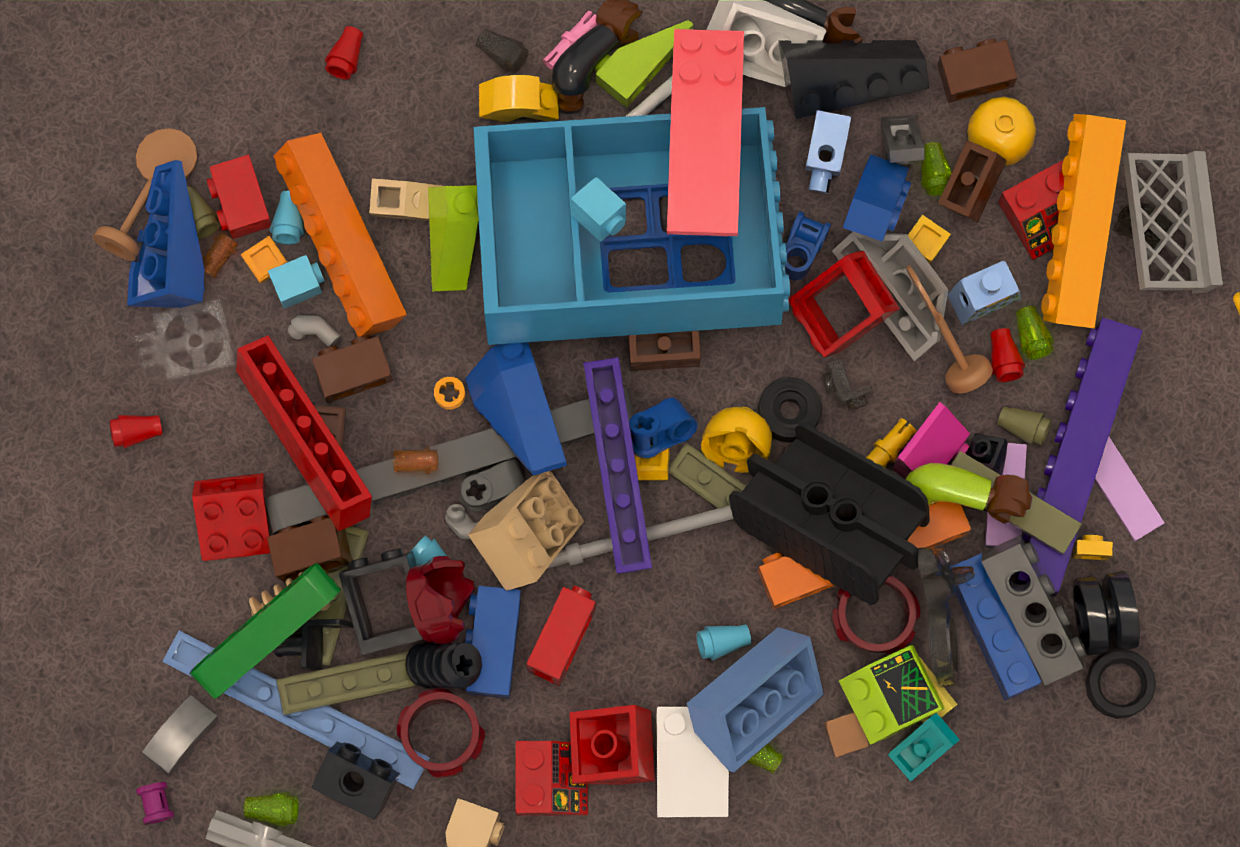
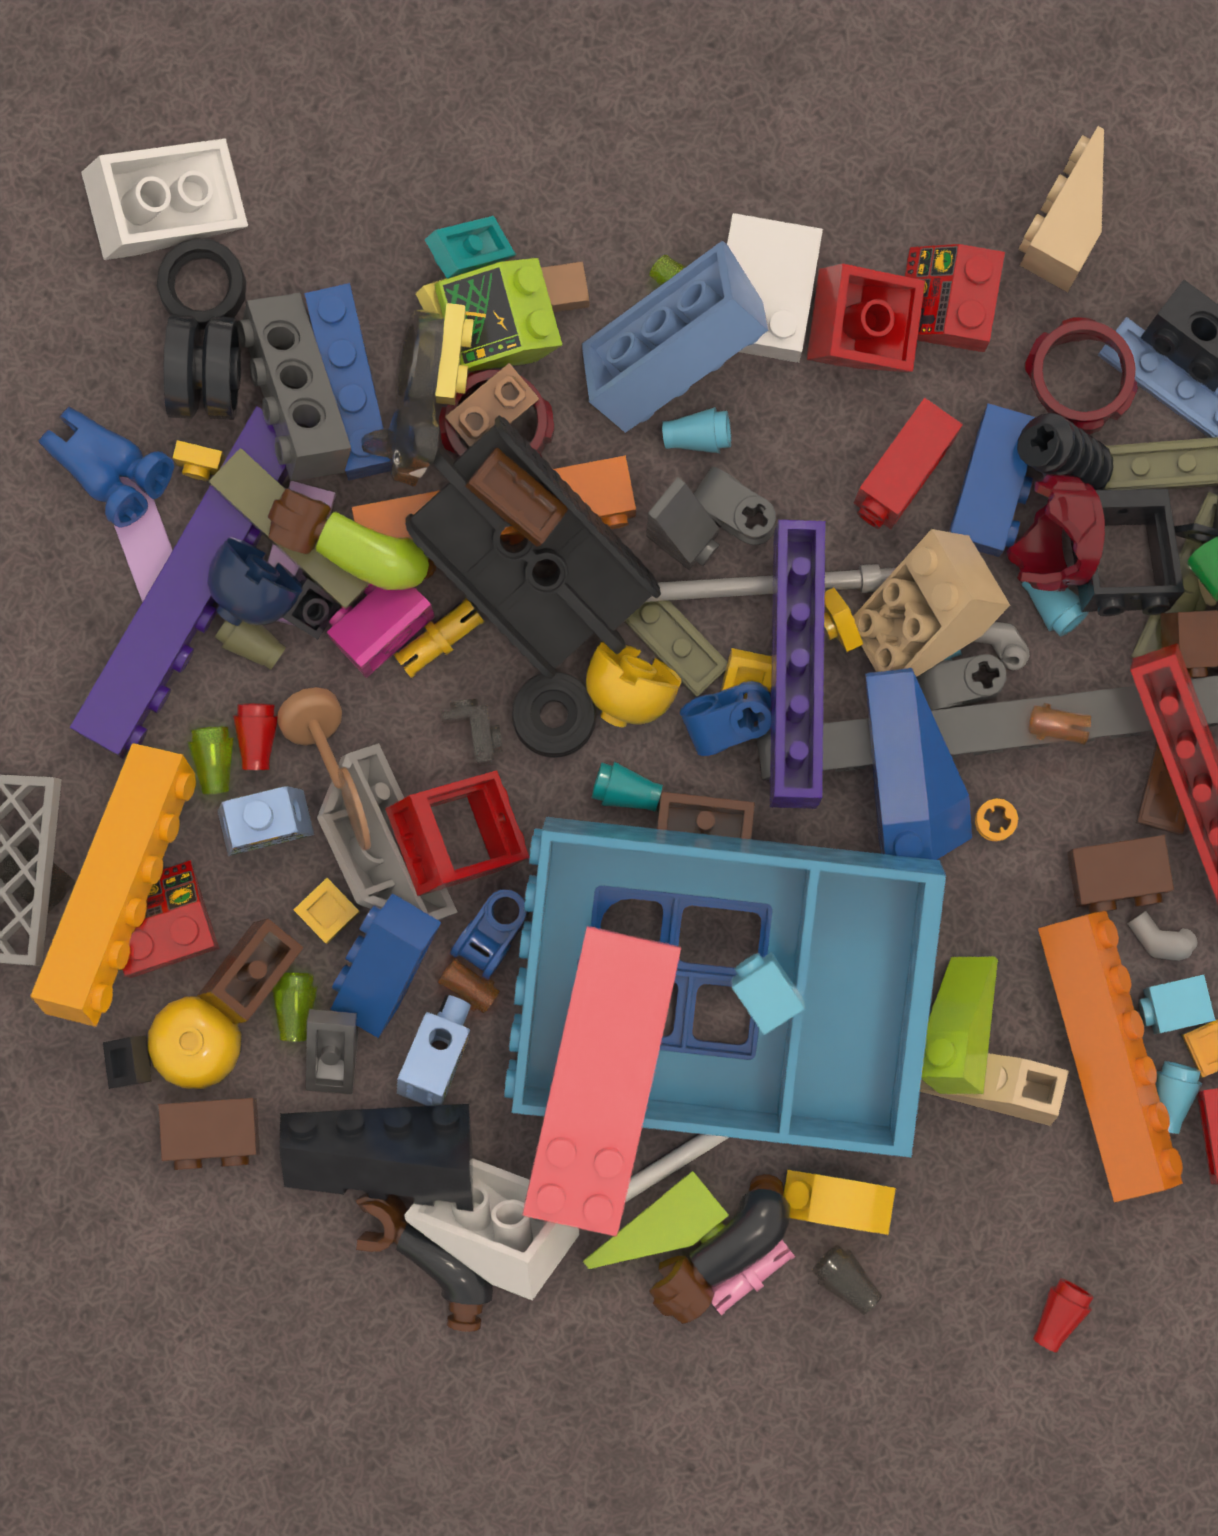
camera: 170 degrees left, 5 degrees up
(592, 513) = (839, 621): none -> yellow plate
(692, 586) = (730, 501): none -> dark grey piece
(721, 557) = (682, 526): none -> dark grey slope
(726, 365) = (624, 788): none -> teal cone
(812, 204) = (469, 986): none -> clear orange pin
(852, 537) = (517, 497): none -> reddish brown plate
(882, 619) = (501, 395): none -> medium nougat hips
(918, 633) = (456, 334): none -> light yellow plate
(1033, 454) = (250, 586): none -> dark blue cylinder
(1046, 107) = (127, 1062): none -> black plate
(1163, 745) = (162, 197): none -> white slope
(1165, 535) = (99, 460): none -> blue piece

